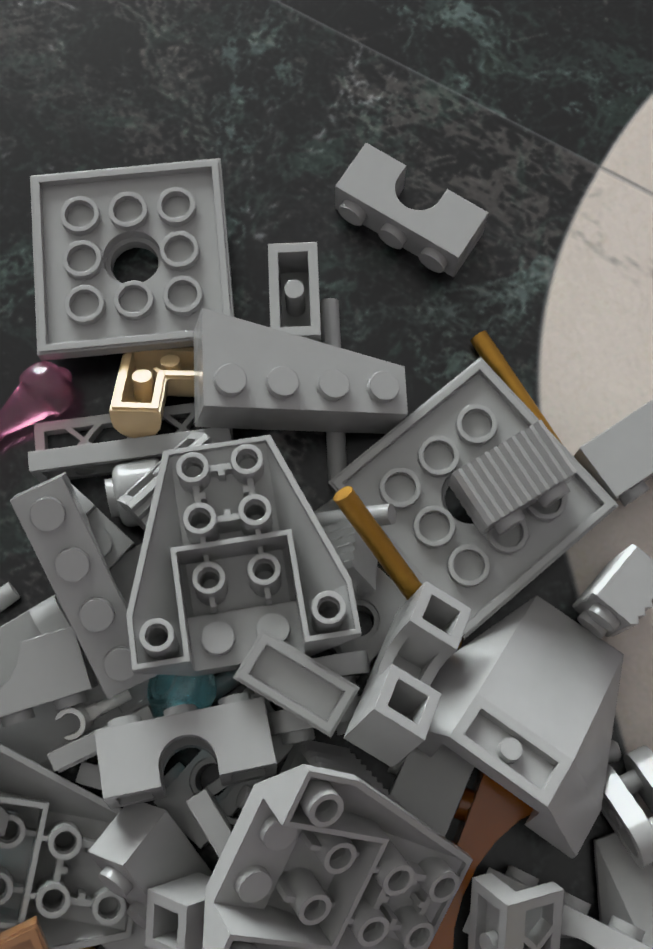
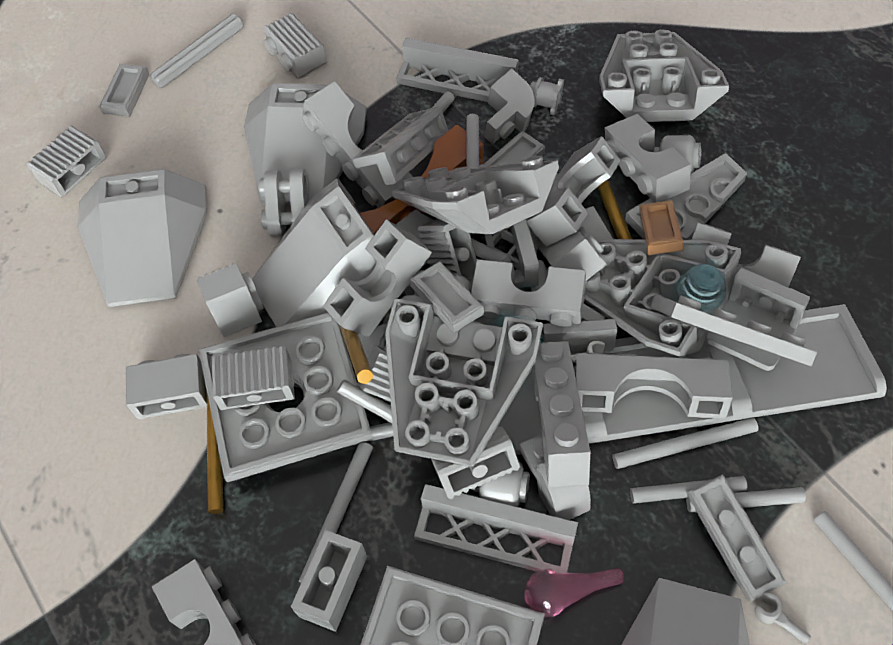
camera: 155 degrees left, 15 degrees down
(143, 386) = (465, 564): tan brick -> none
(289, 382) = (375, 507): light grey wedge -> none

